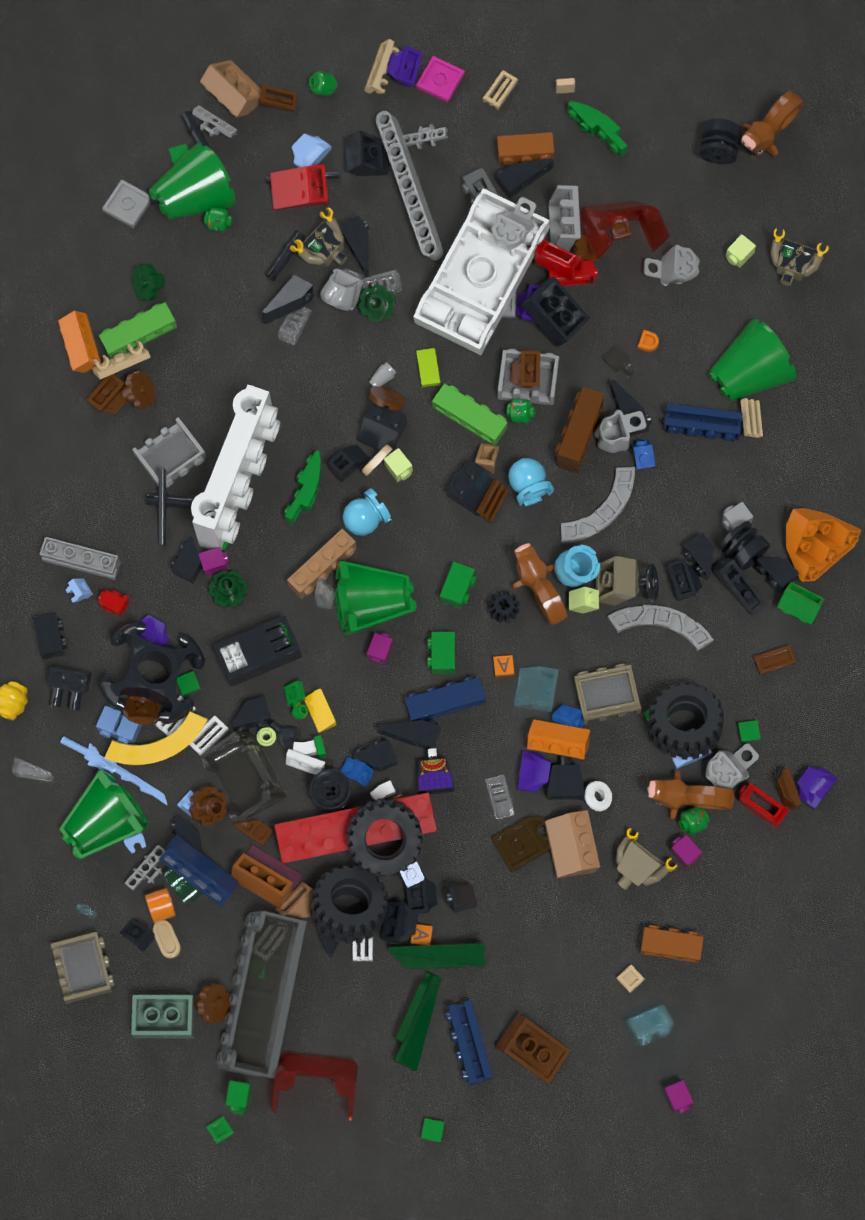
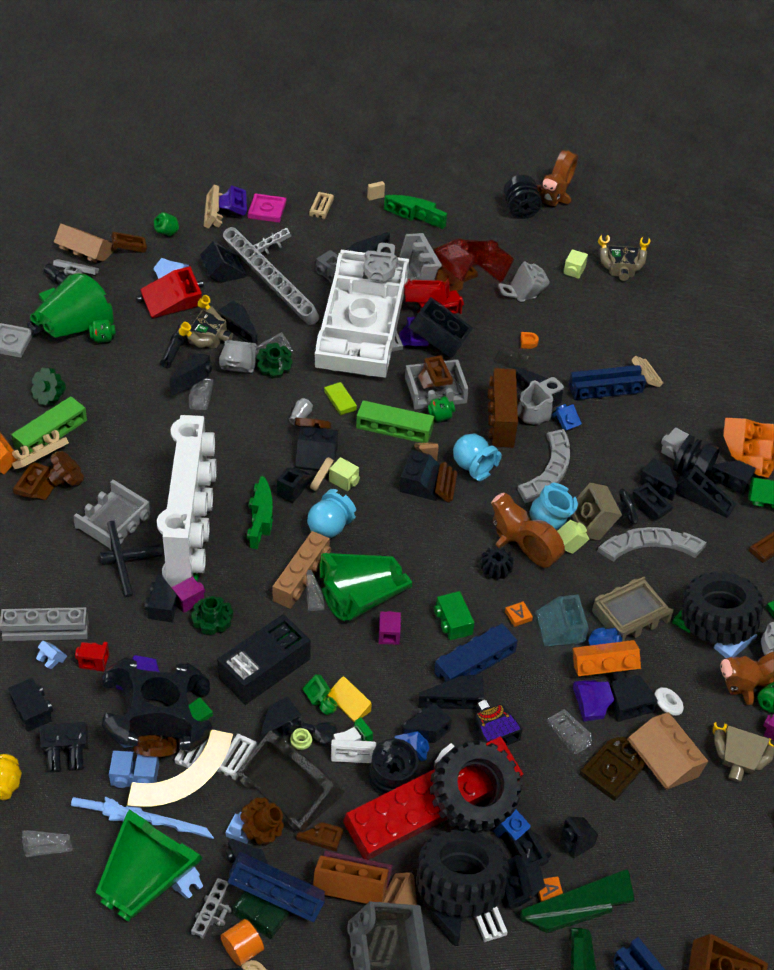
camera: 25 degrees left, 25 degrees down
(457, 585) = (444, 556): green brick -> none
(525, 148) = (354, 232): dark orange brick -> none
(752, 363) = (629, 330): green cone -> none

